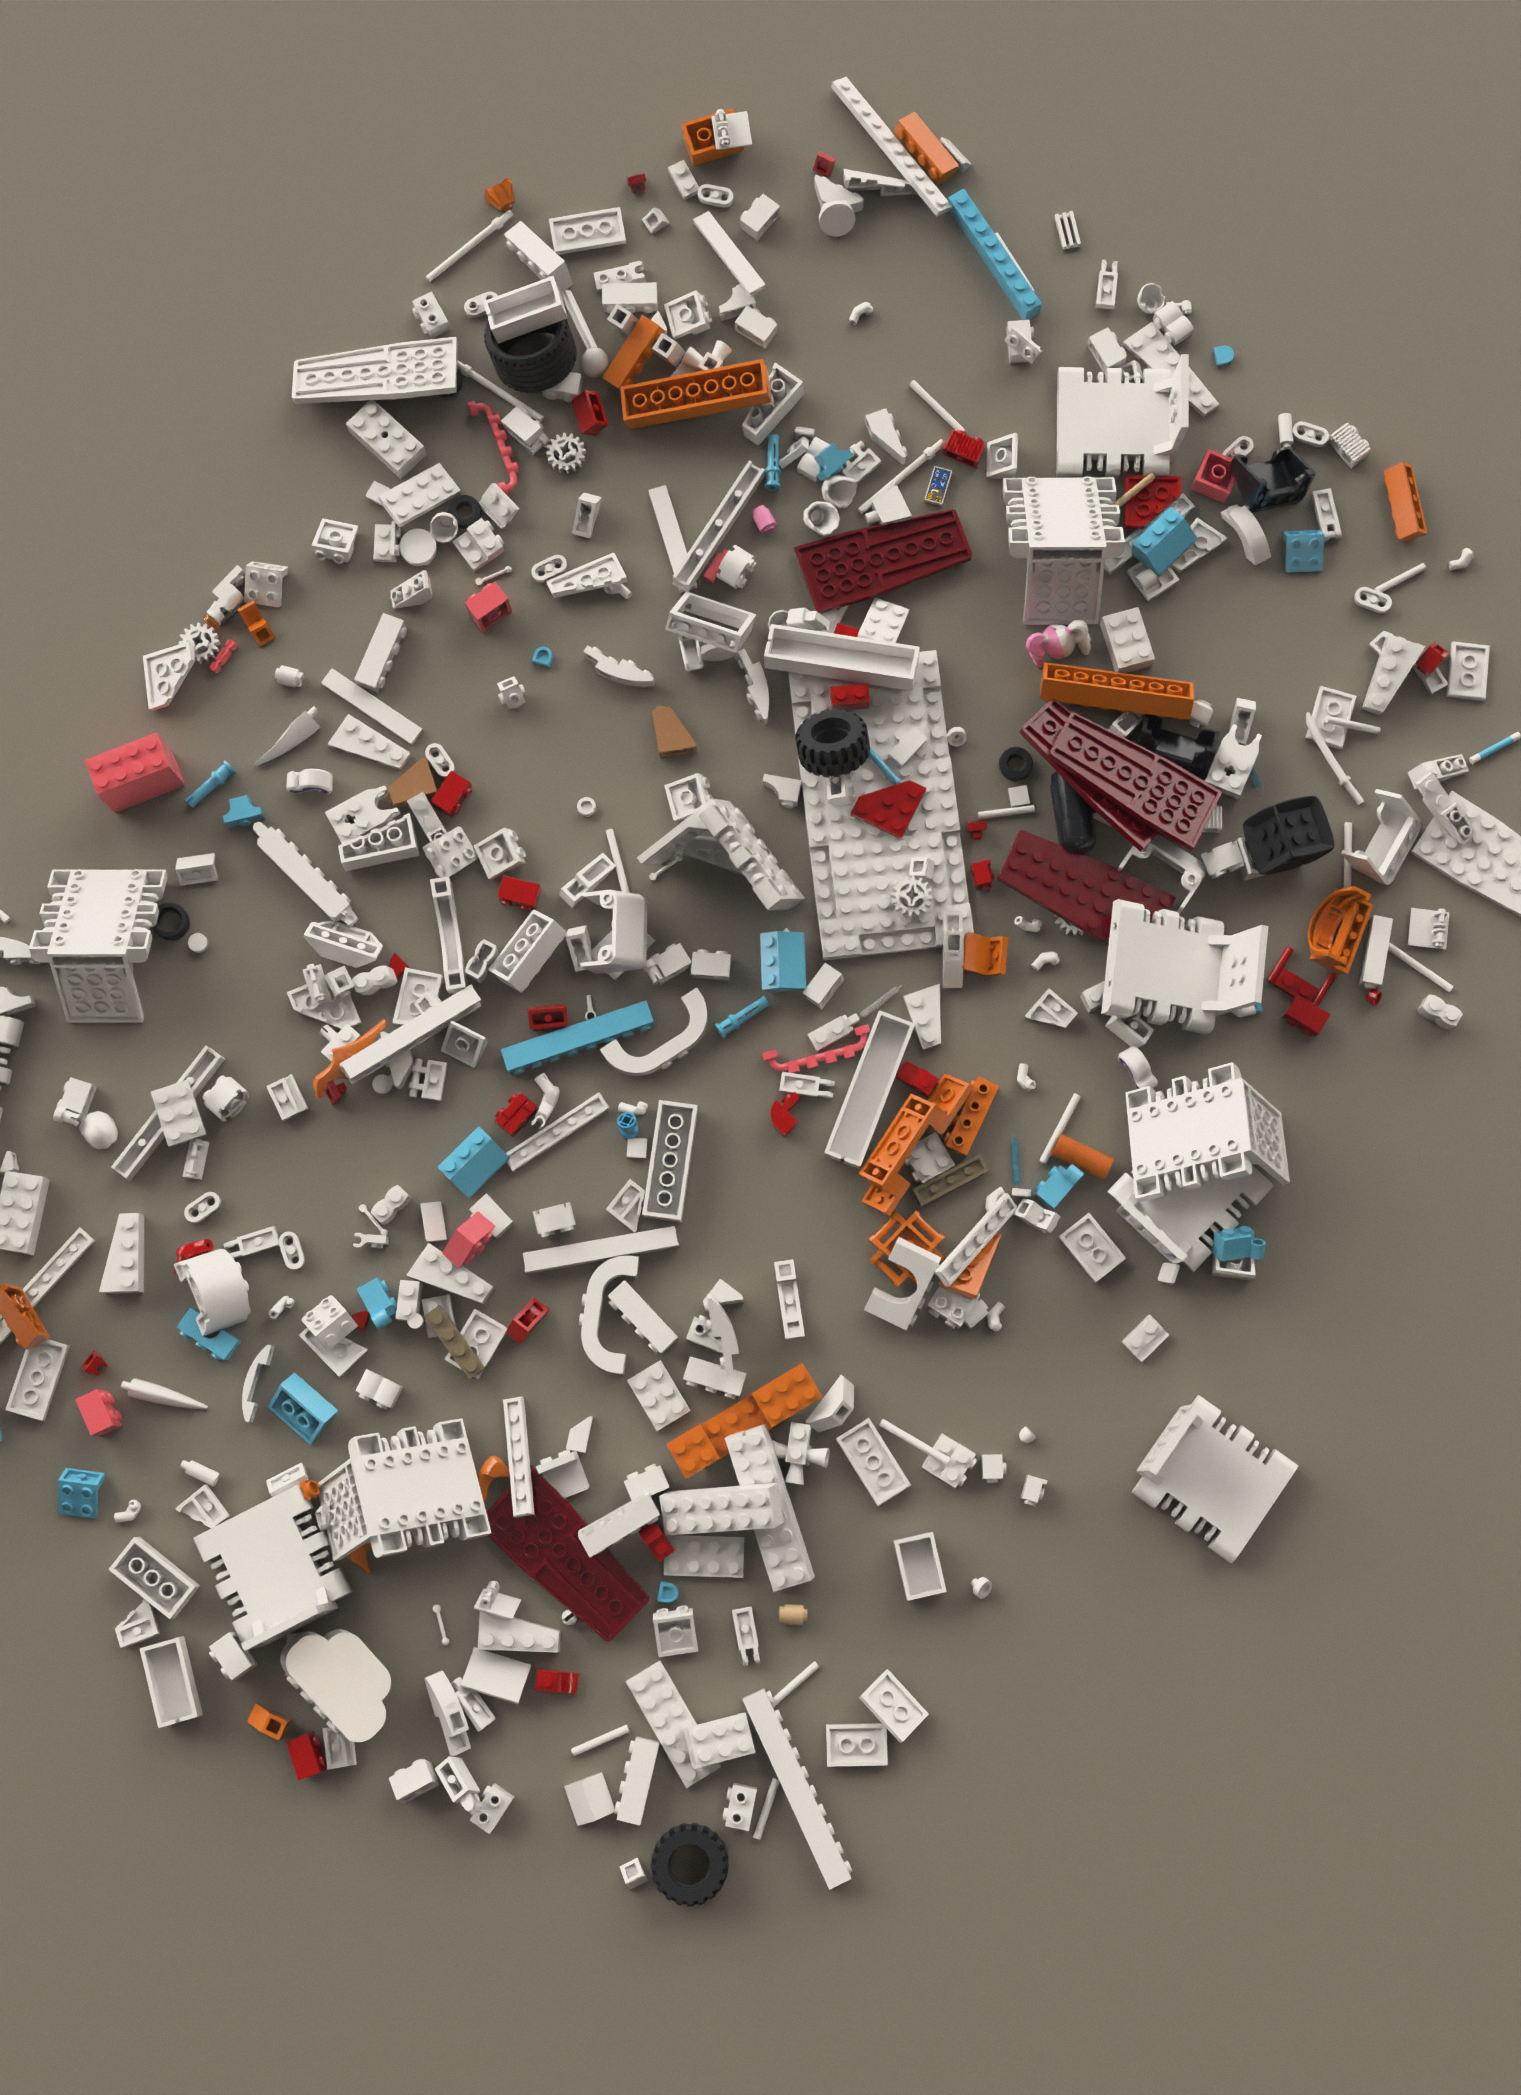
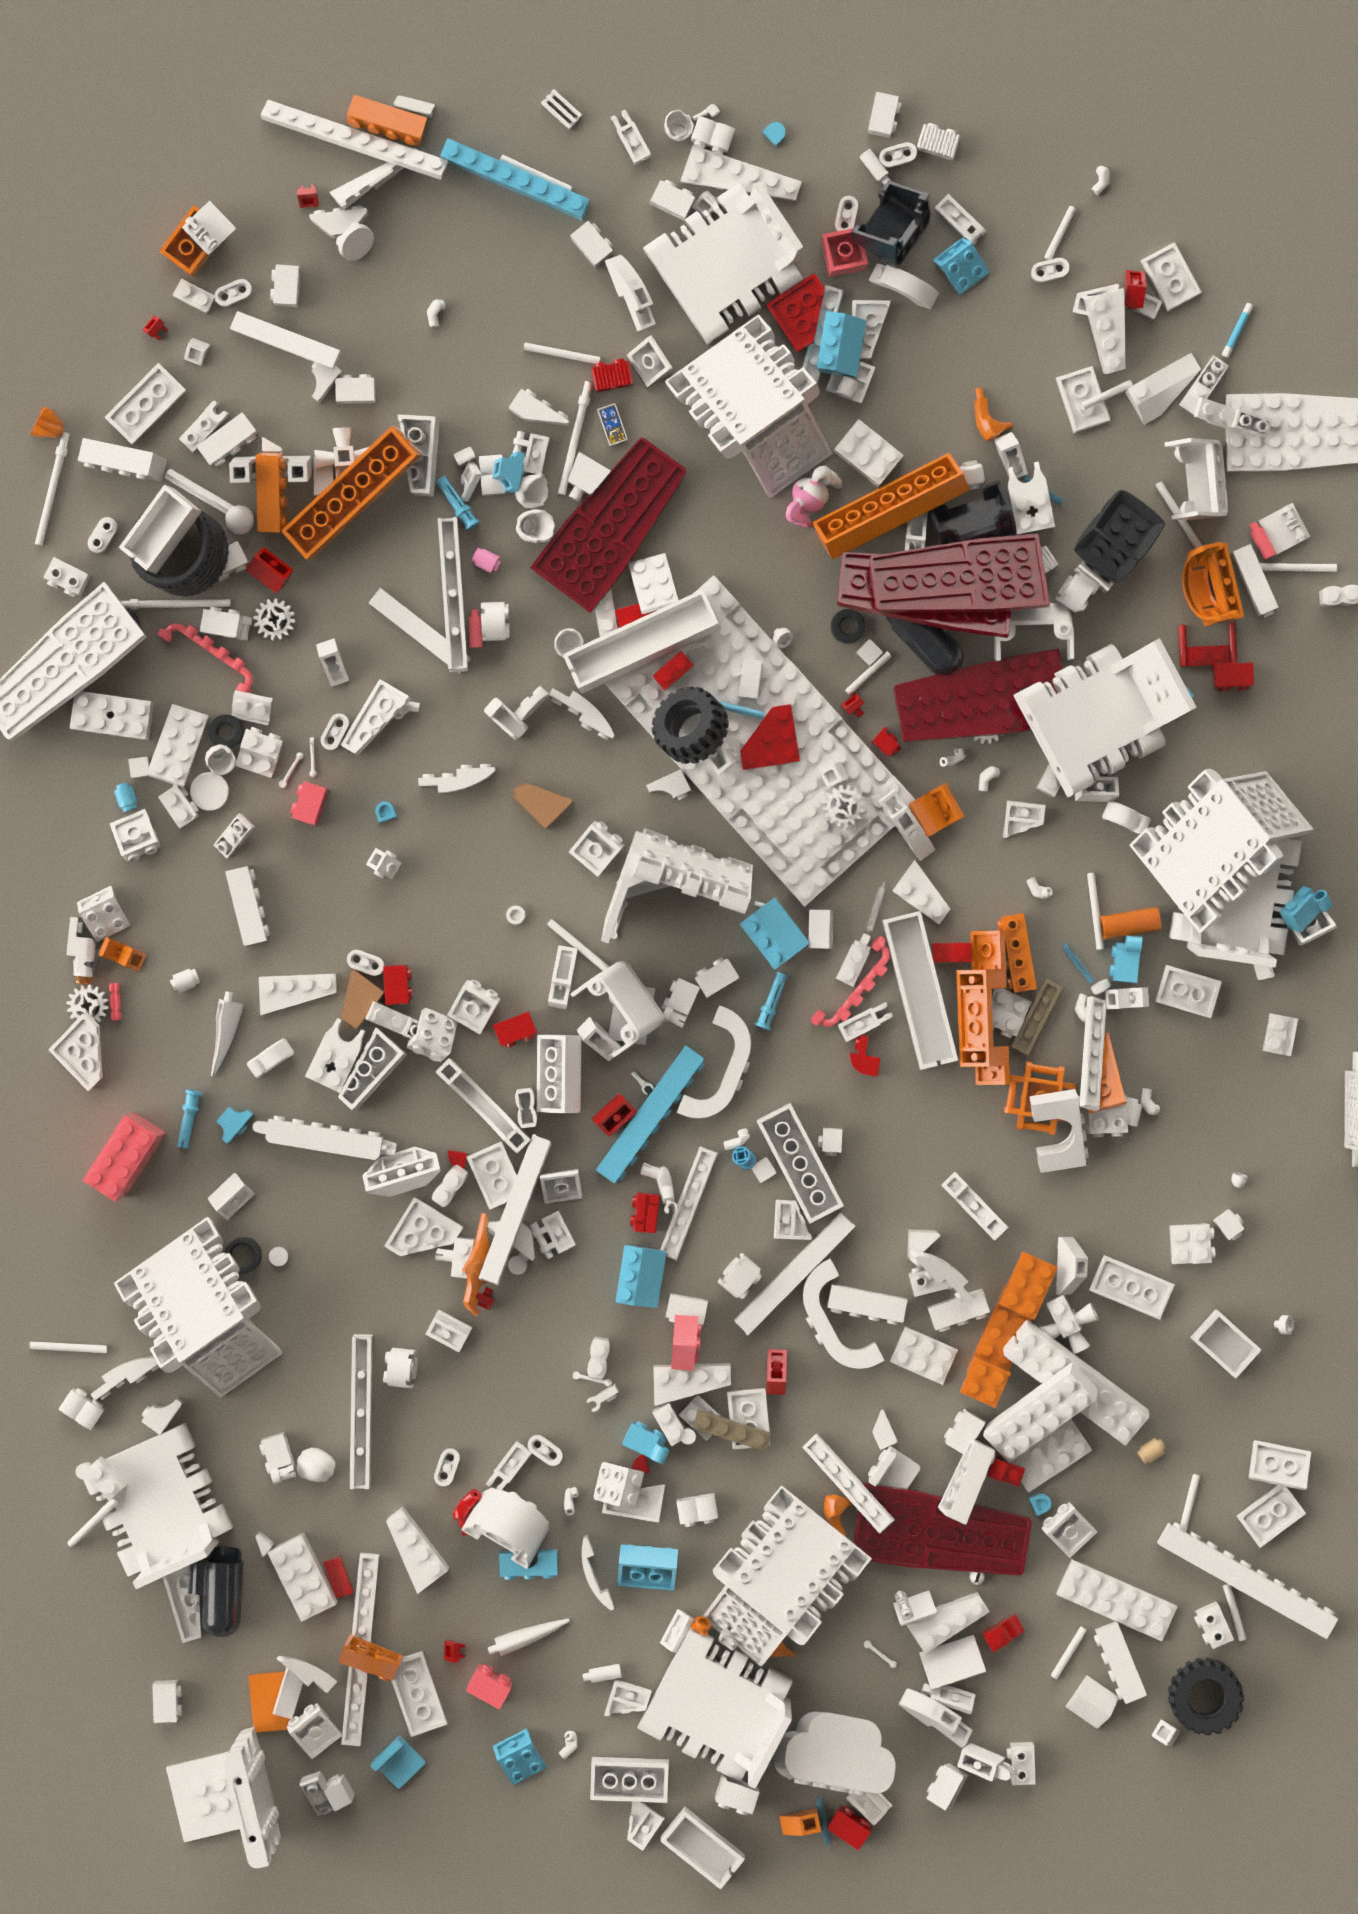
camera: 40 degrees left, 10 degrees up
(49, 1235) = (338, 1577): none -> red slope
(178, 1113) = (372, 1407): white plate -> none
(196, 1159) = (411, 1432): white hinge -> none
(288, 1733) = (824, 1819): none -> medium azure piece
(316, 984) = (405, 1223): white hinge -> none
(342, 976) = (430, 1206): white brick -> none
(350, 507) = (125, 797): none -> medium azure brick
(372, 706) = (272, 956): white tile -> none
(427, 1001) = (508, 1173): white slope -> none
(433, 1221) = (642, 1345): white slope -> none
(509, 589) = (313, 773): none -> white hinge
(688, 315) = (289, 421): white plate -> none
(706, 631) = (513, 704): white window -> none
(709, 1162) = (831, 1141): none -> white brick
(719, 1740) = (1163, 1588): white brick -> none
(746, 1633) = (1124, 1490): white hinge -> none
(808, 620) = (589, 628): white piece -> none
(915, 1442) = (1154, 1248): white bar -> none
(1022, 345) = (592, 249): white hinge -> none
(1027, 391) = (634, 291): none -> white slope
(1033, 1490) = (1273, 1220): white brick -> none
(1133, 491) = (783, 317): tan bar -> none
(1238, 683) = (987, 427): none -> orange animal
(1319, 396) = (883, 115): none -> white brick
(1332, 761) = (1130, 447): white sword -> none
(1374, 997) = (1278, 619): red hinge -> none
(1397, 750) = (1160, 389): none -> white wedge
(1403, 925) = (1262, 541): none -> coral cylinder
(1405, 502) = (1020, 163): orange brick -> none

